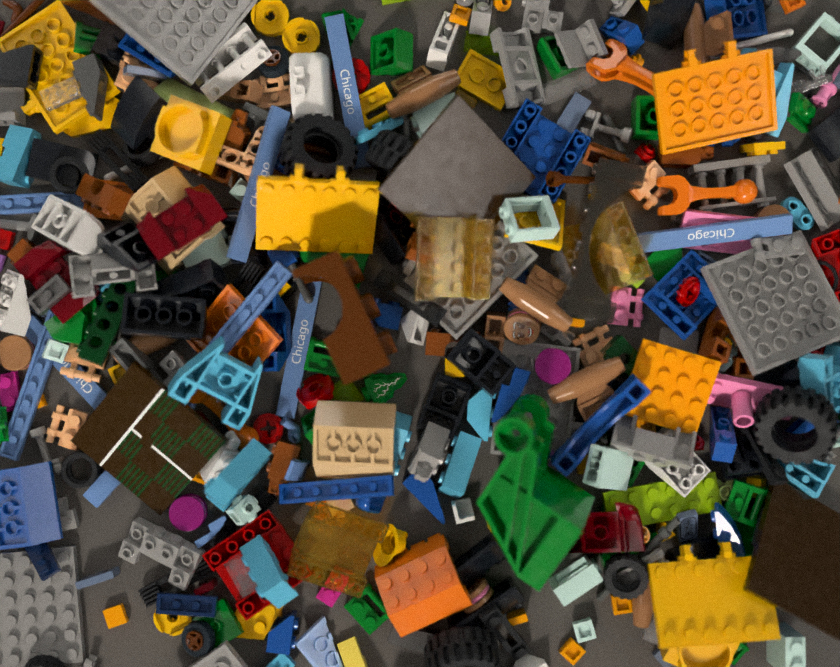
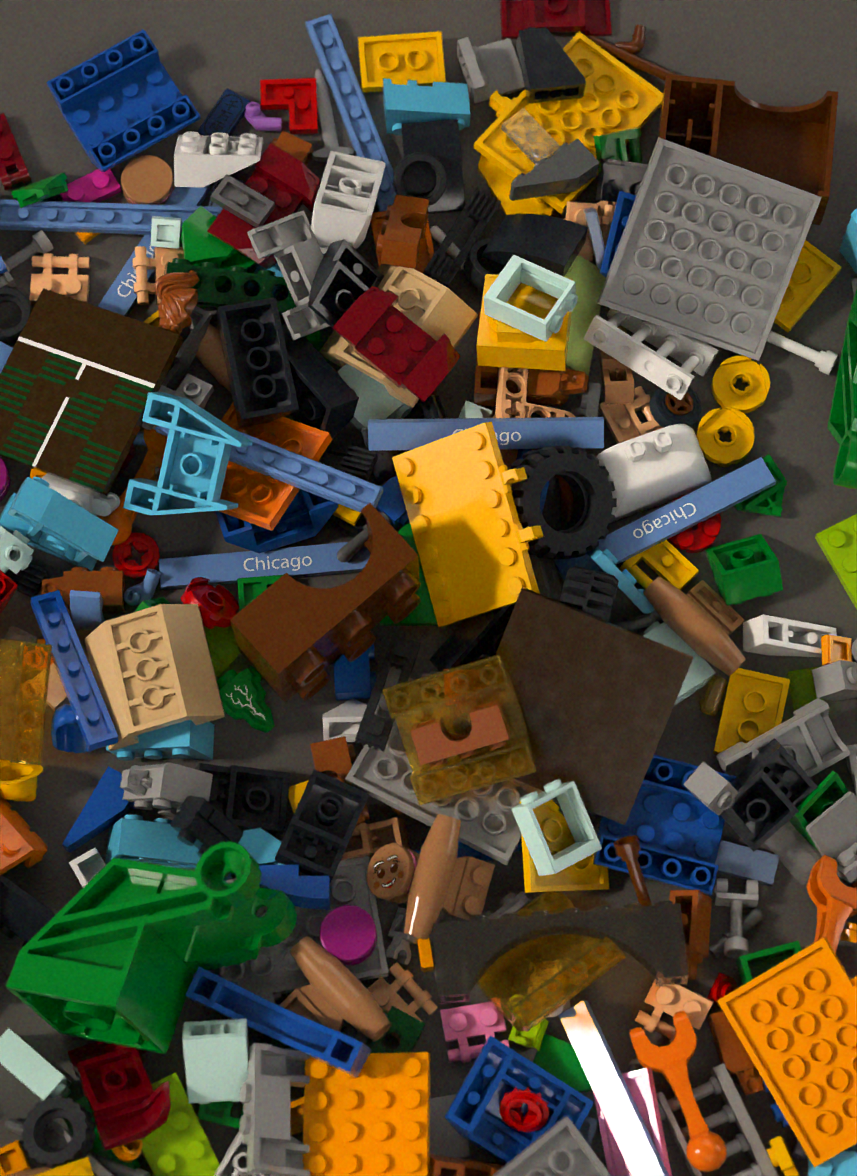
camera: 70 degrees right, 15 degrees down
(106, 357) = (177, 300): none -> dark orange hair
(167, 112) = (553, 284): none -> light aqua window
(458, 276) = (436, 743): none -> dark orange arch
(464, 434) = (204, 825): none -> black brick
(535, 114) = (711, 789): none -> light grey brick
(542, 85) = (767, 795): none -> black slope

